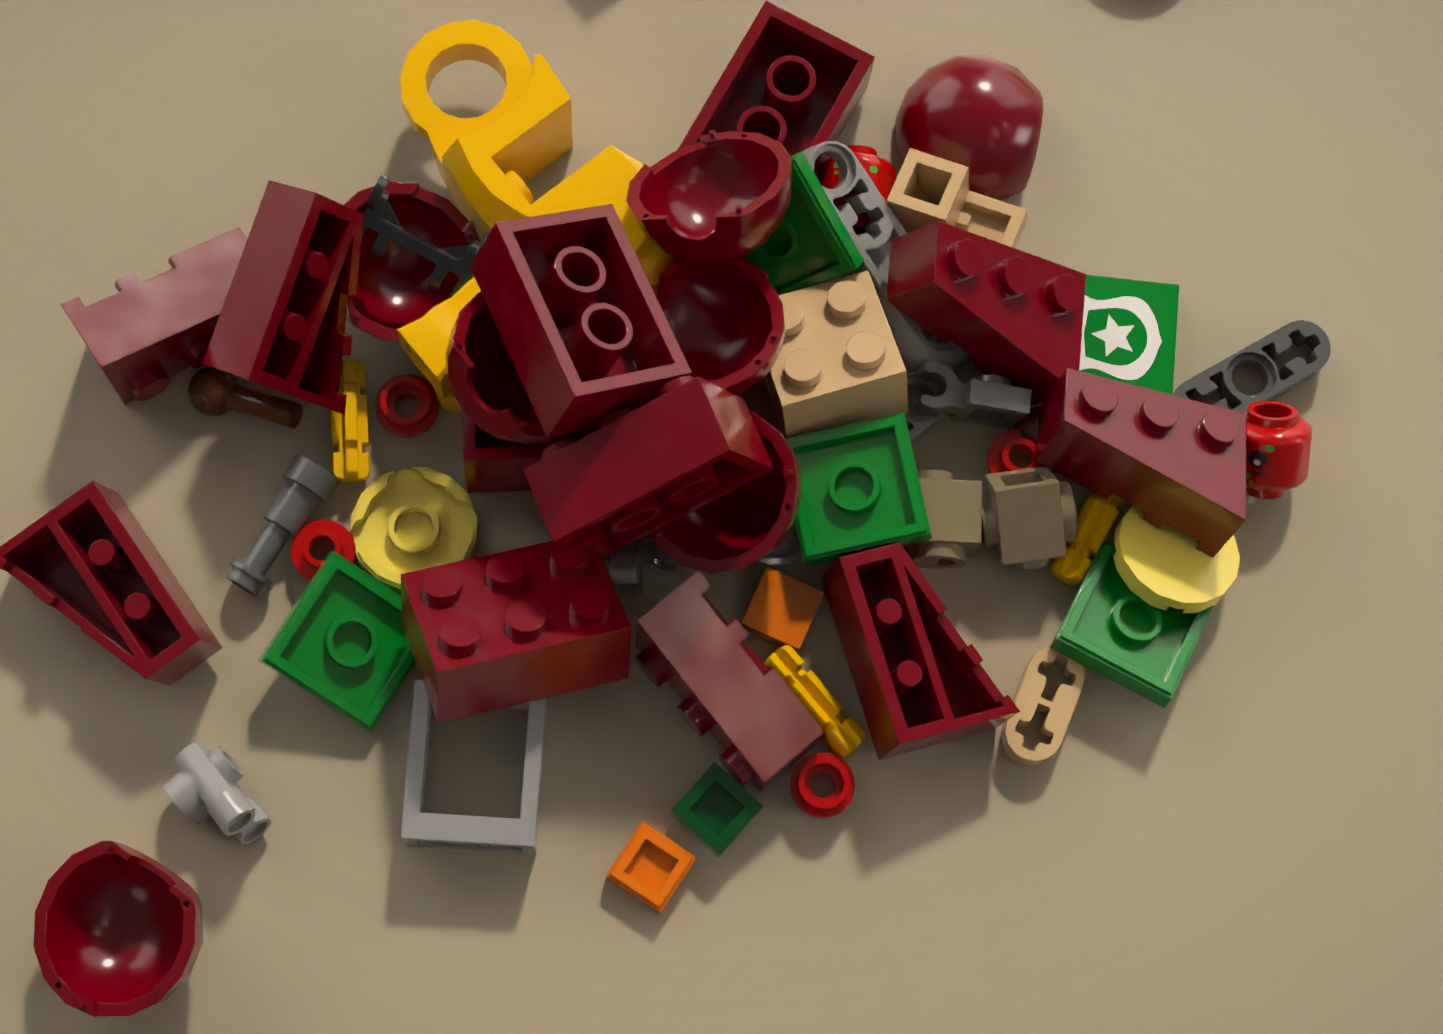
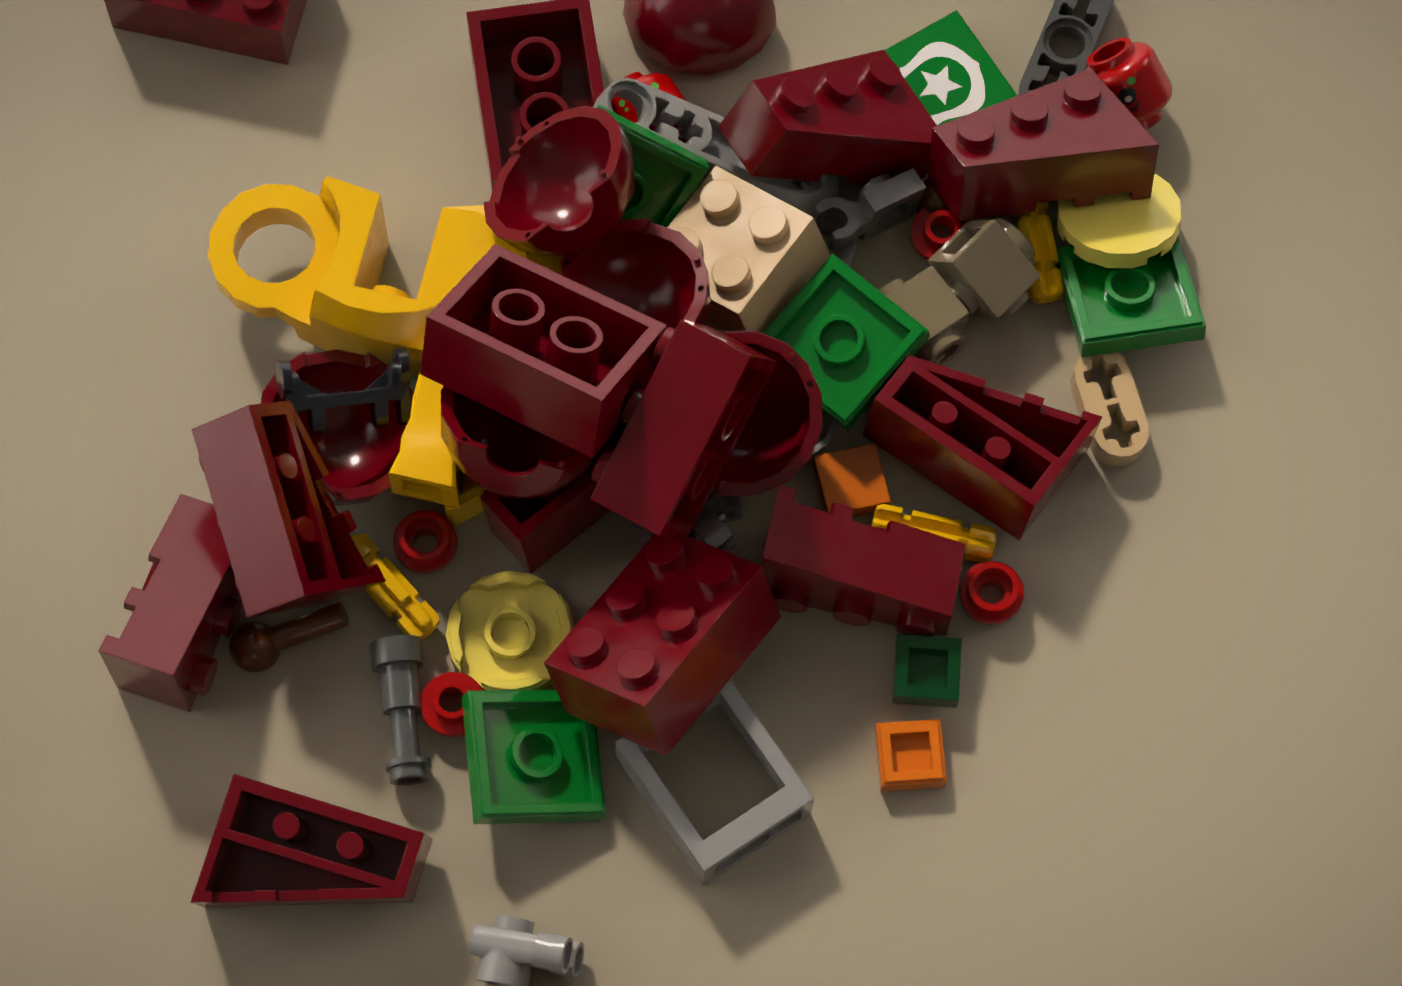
camera: 30 degrees left, 5 degrees down
(938, 190) = (719, 73): tan brick -> none

